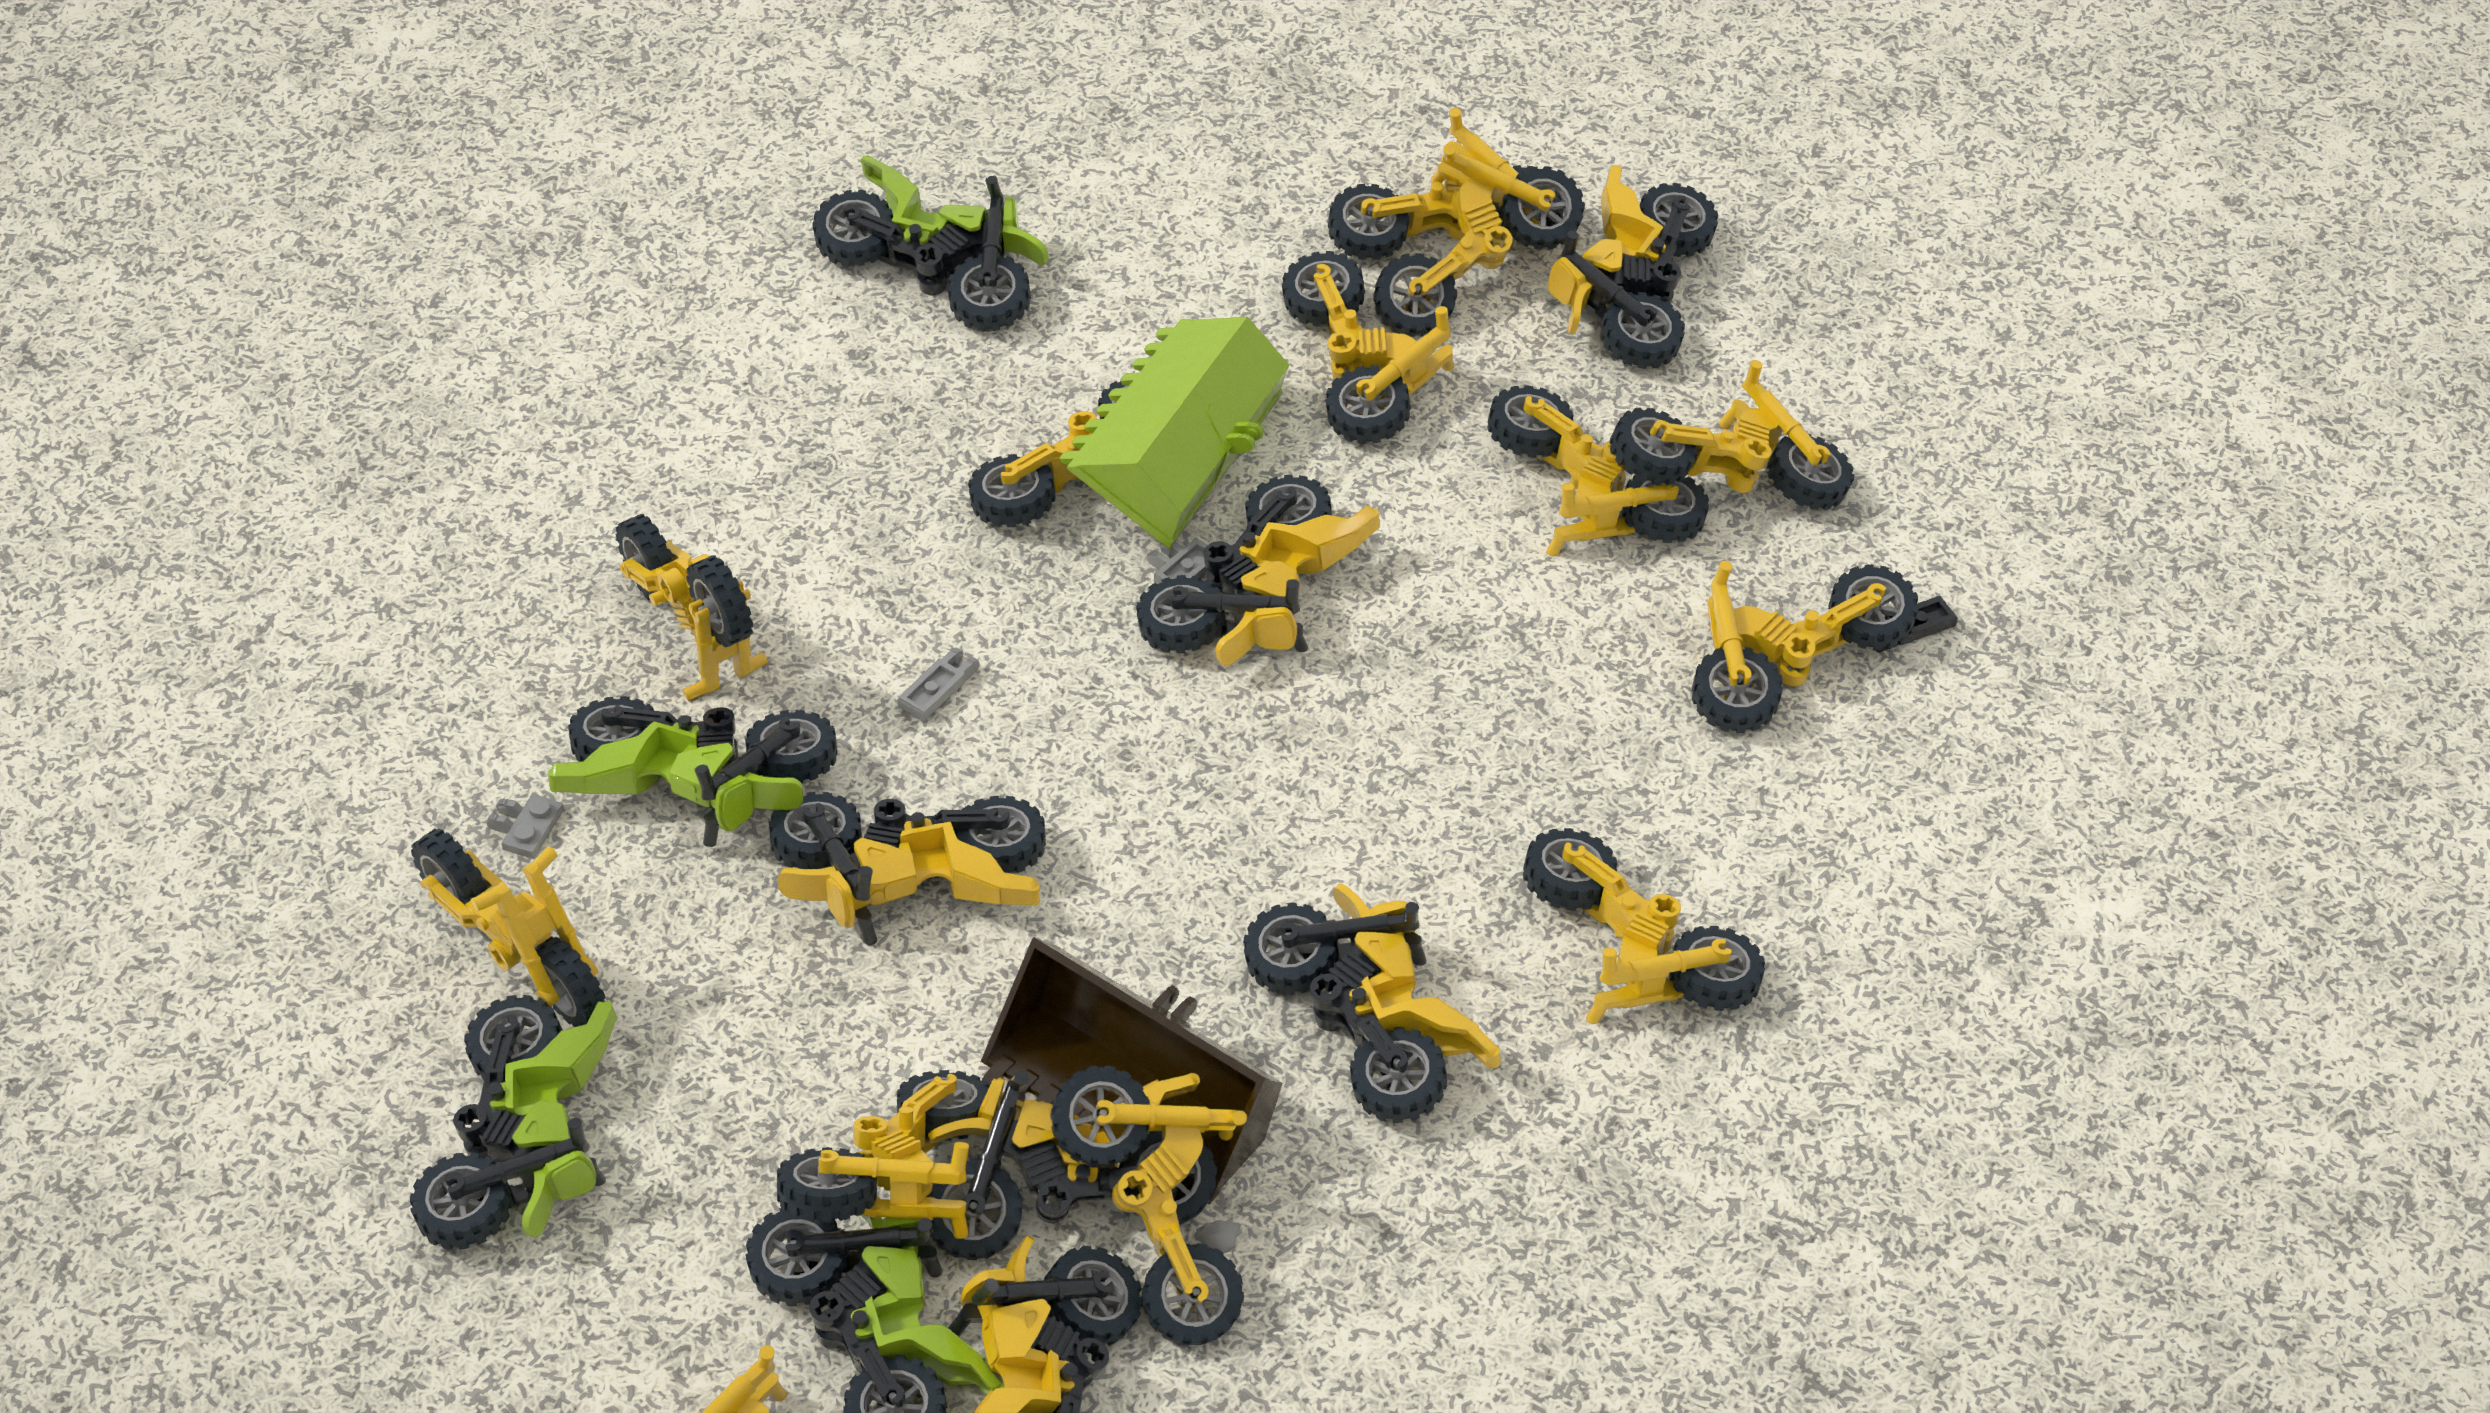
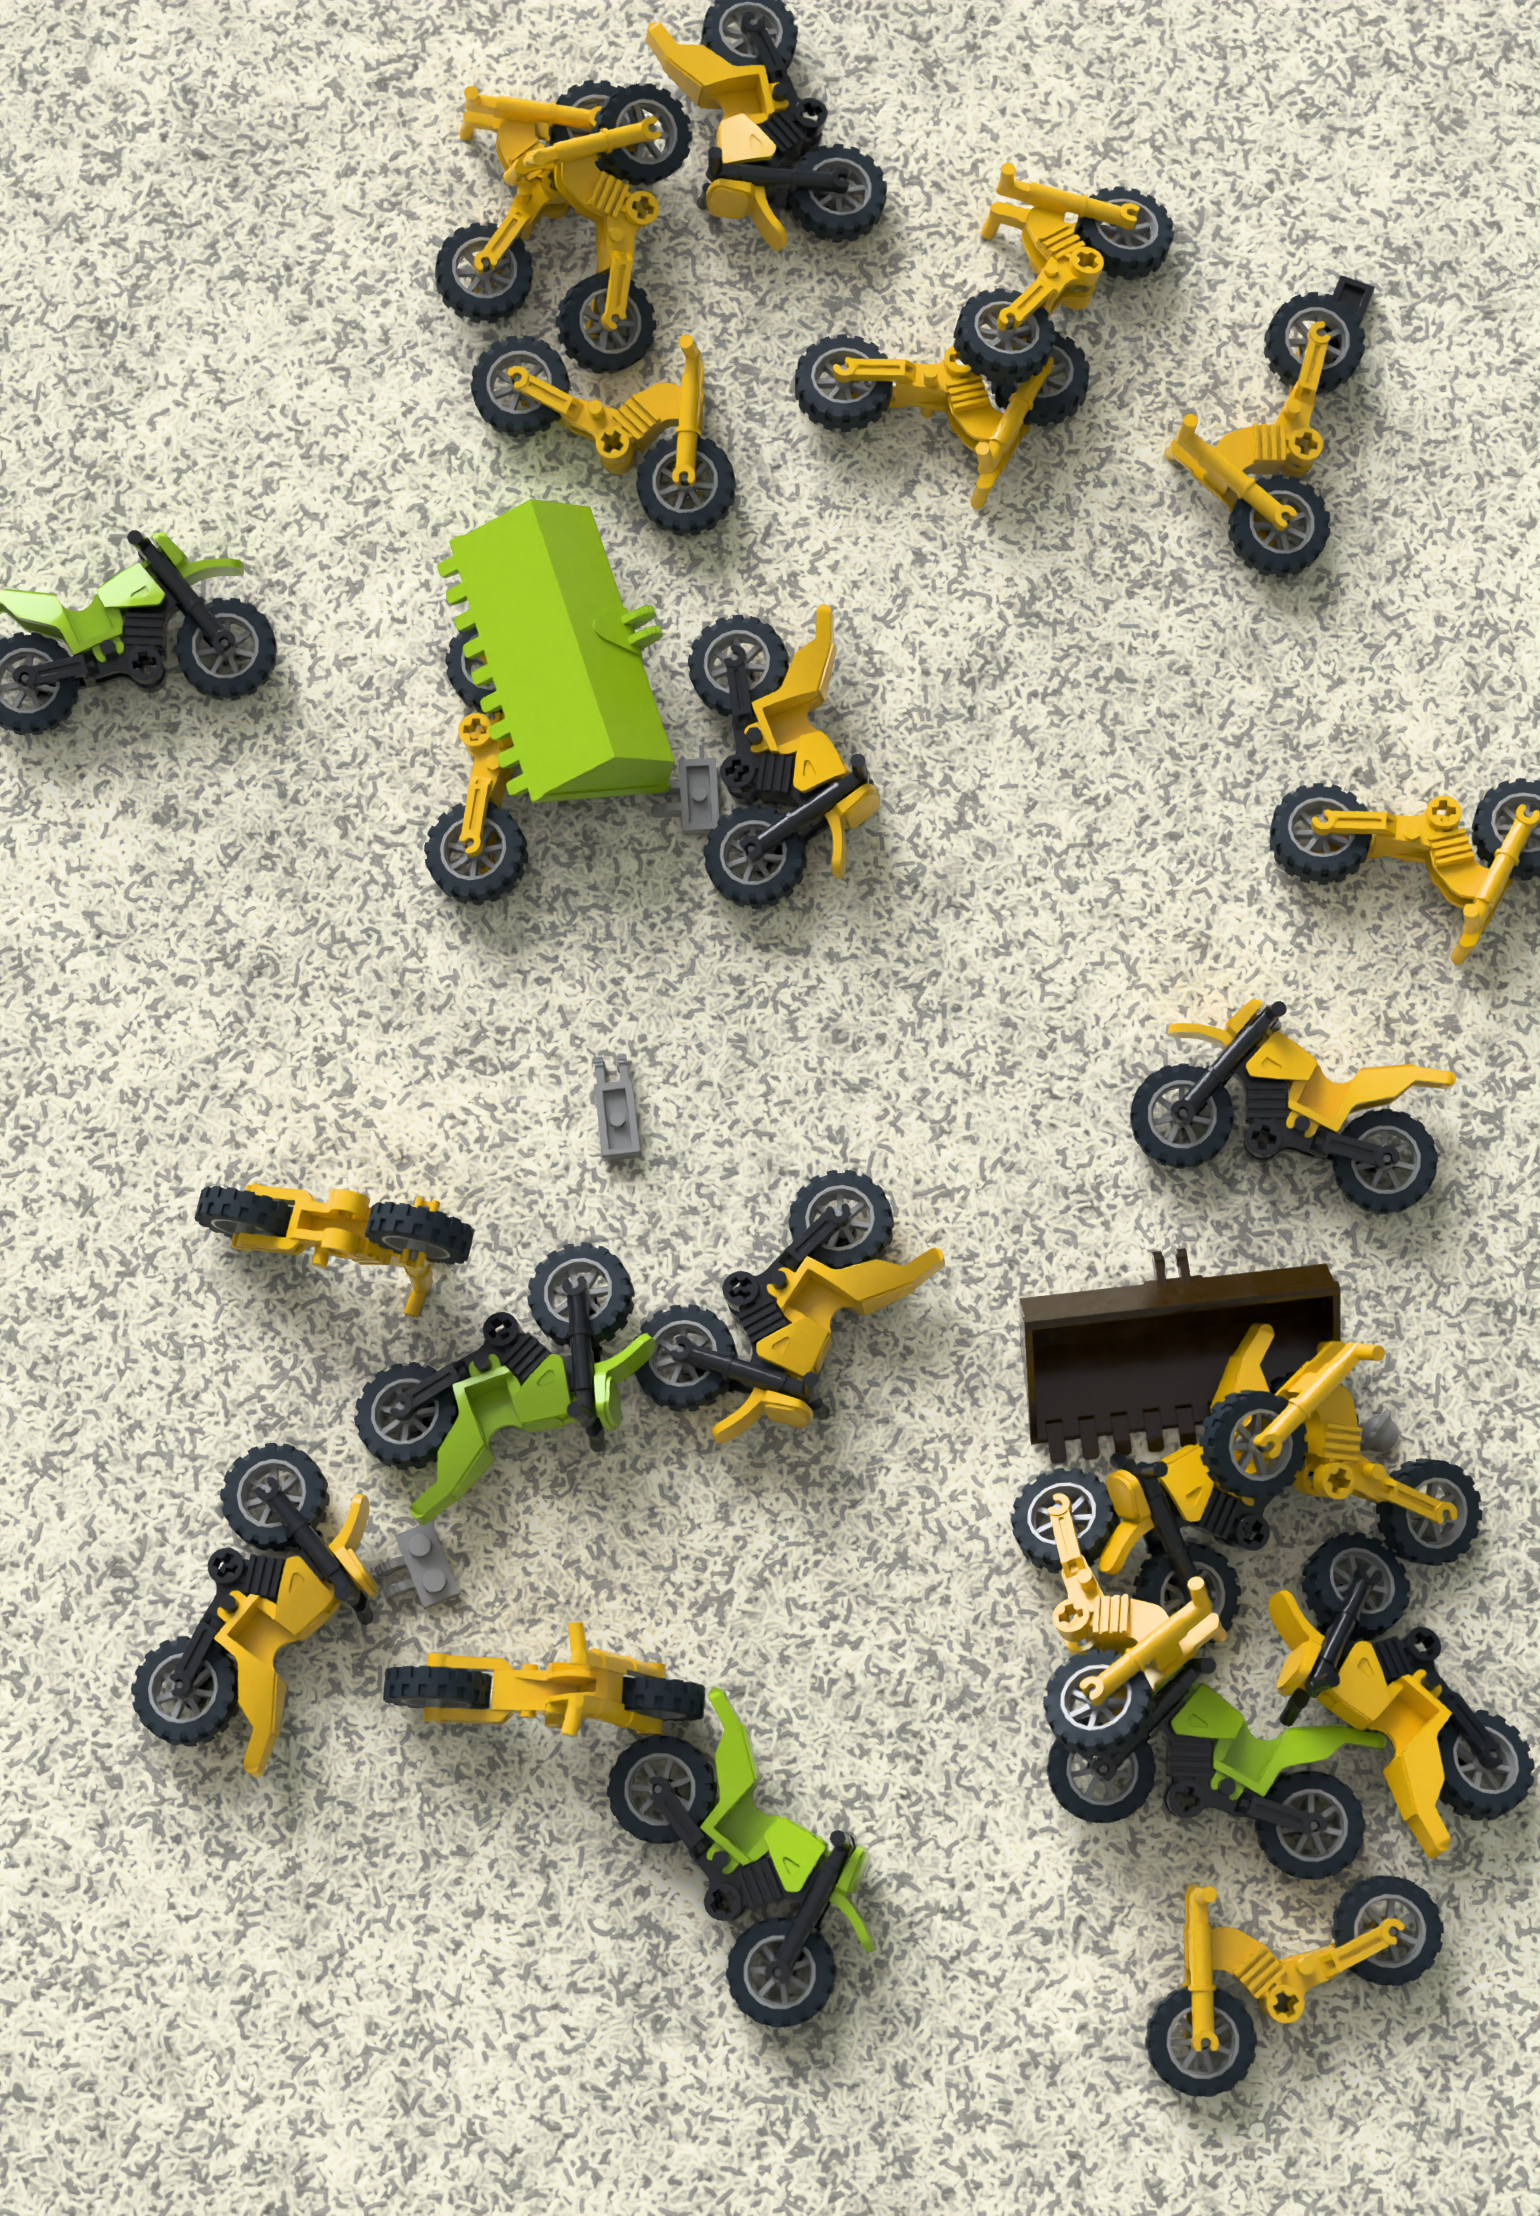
camera: 40 degrees left, 25 degrees up
(406, 753) = (257, 1607): none -> piece

